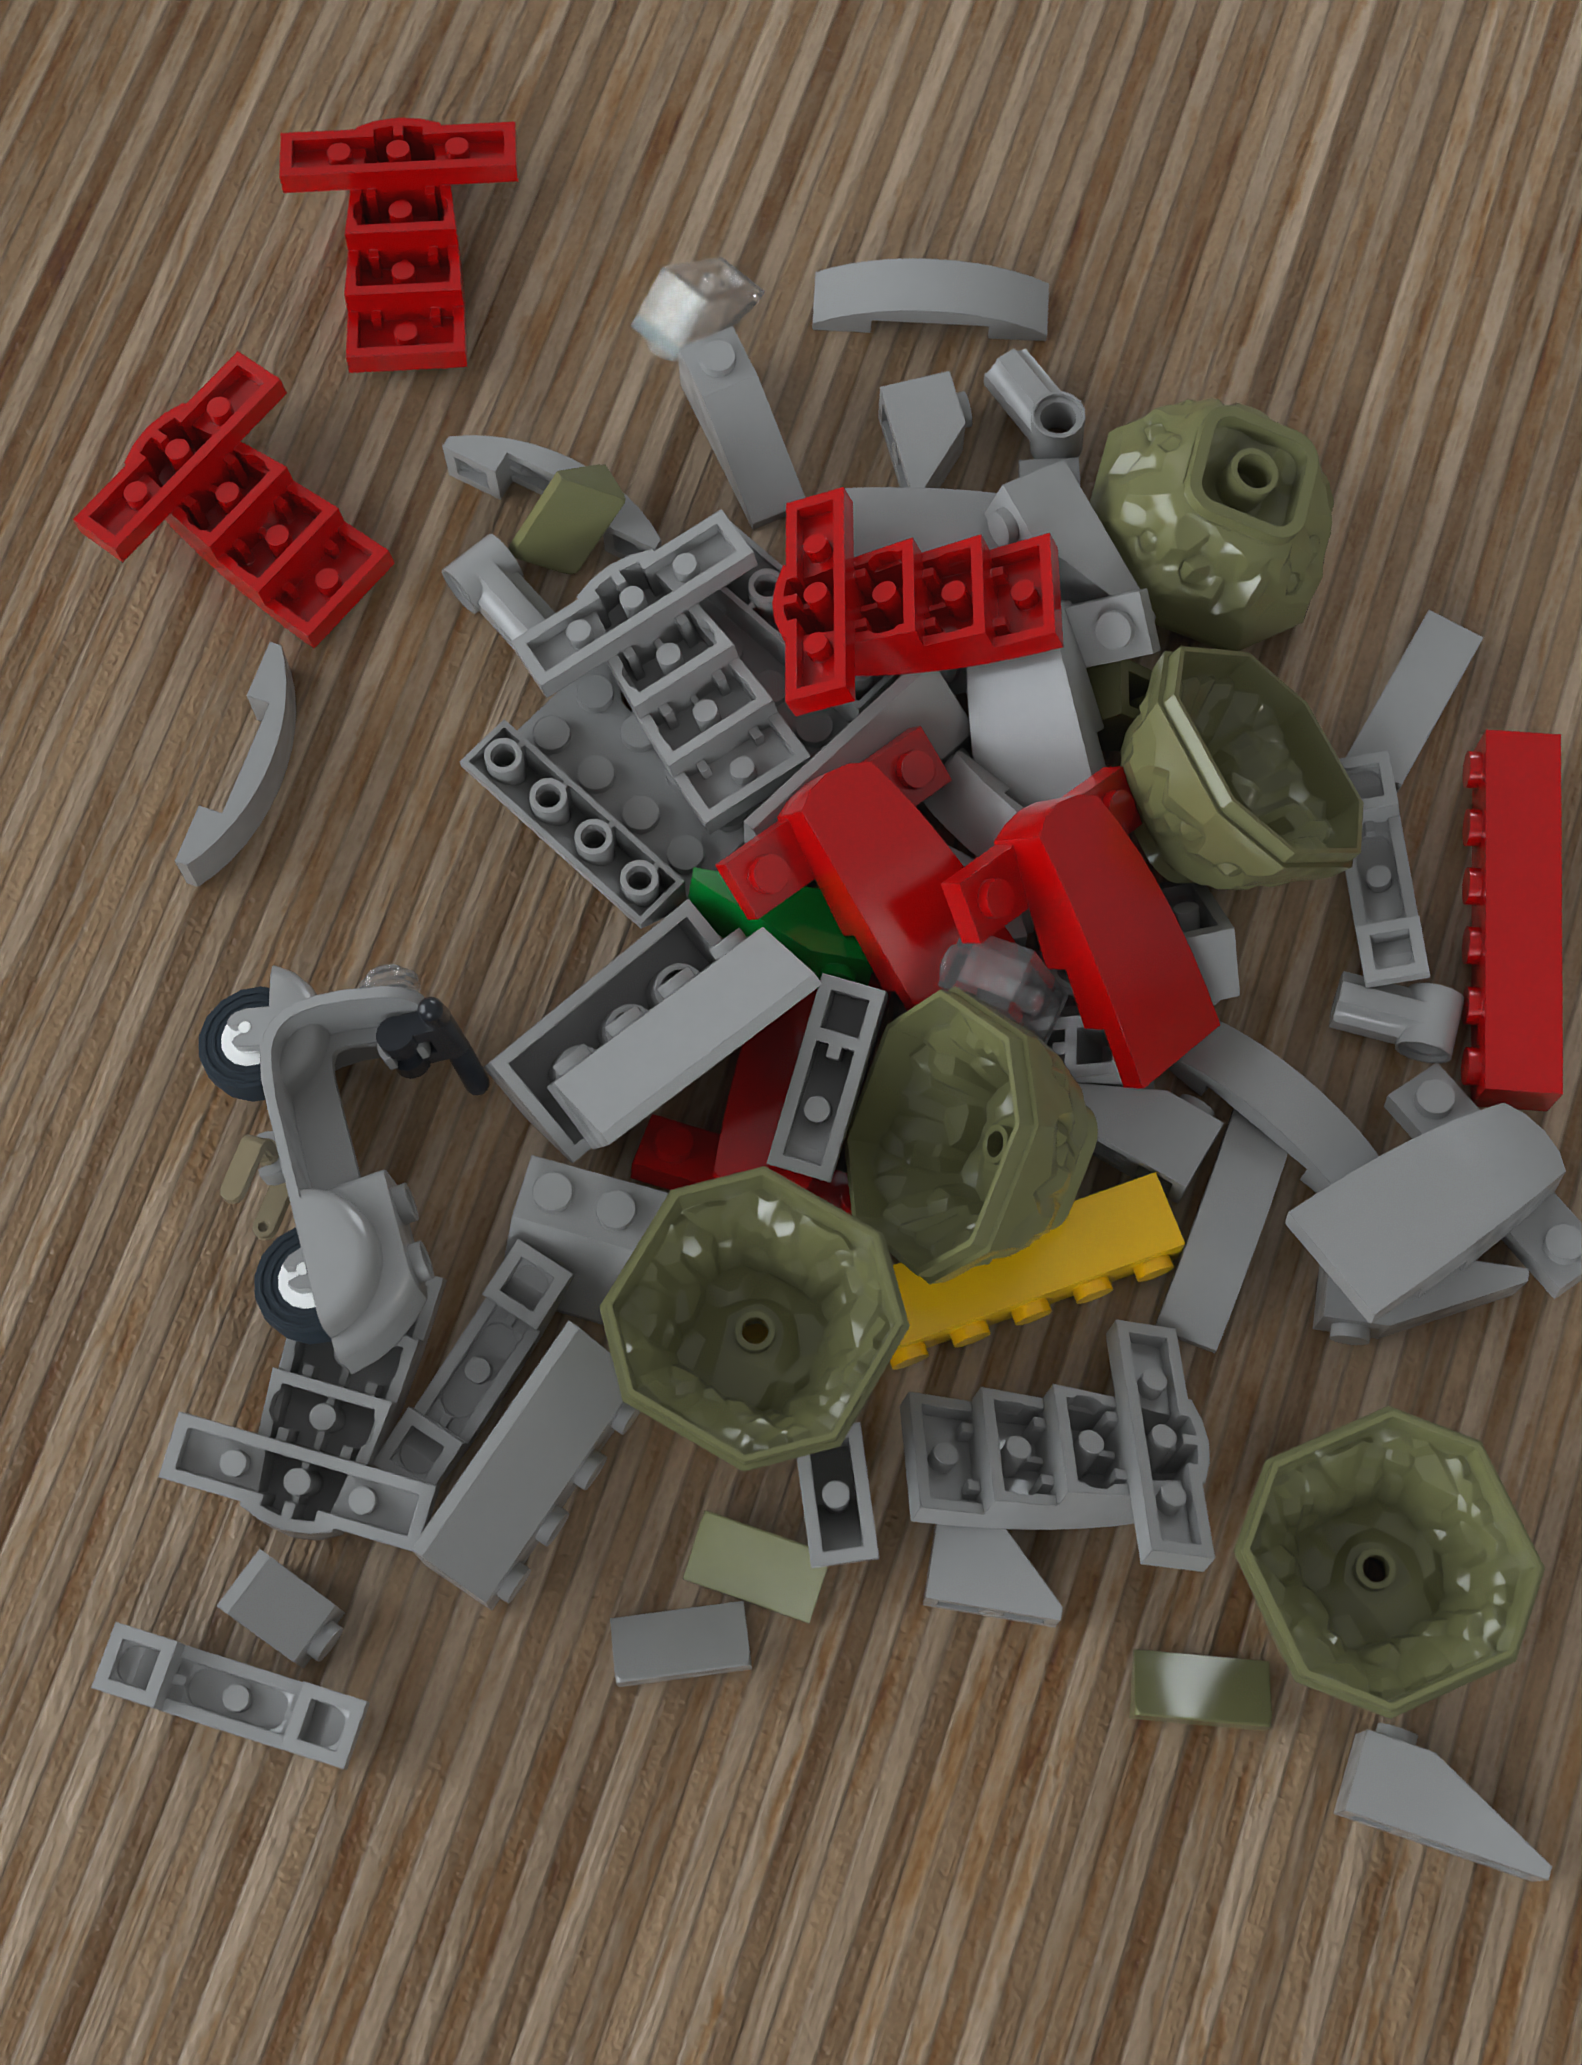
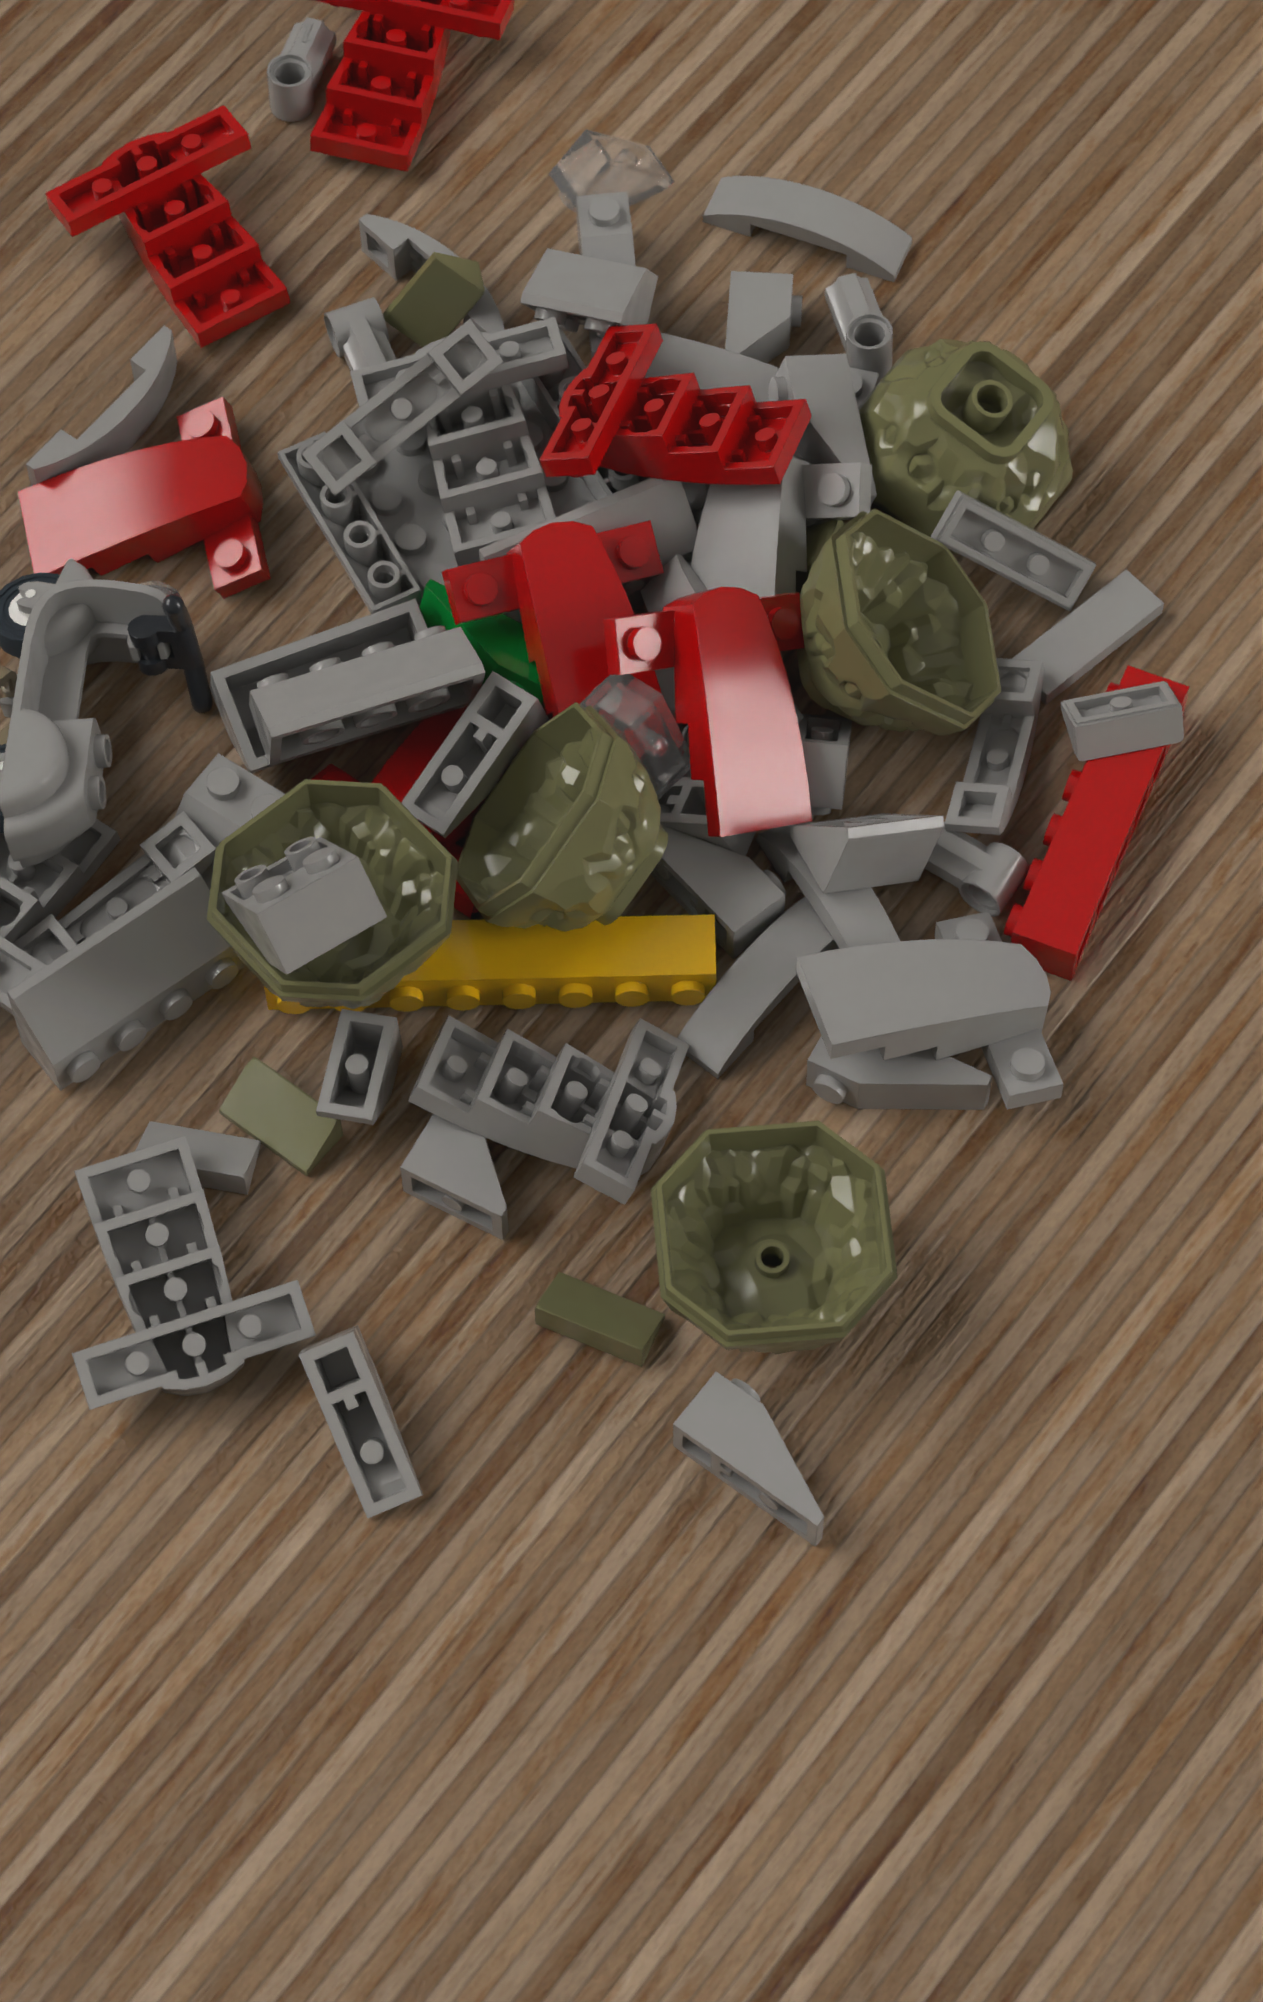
camera: 20 degrees right, 10 degrees down
(301, 278) = (298, 70): none -> light grey piece
(337, 863) = (156, 506): none -> red slope
(591, 673) = (402, 407): none -> light grey slope
(722, 1828) = (173, 1283): none -> light grey slope
(741, 463) = (589, 292): none -> light grey slope
(741, 1359) = (304, 902): none -> light grey slope
(988, 1912) = (361, 1420): none -> light grey slope
(1289, 1035) = (867, 849): none -> light grey slope
(1314, 631) = (1013, 550): none -> light grey tile
(1510, 798) = (1123, 720): none -> light grey slope

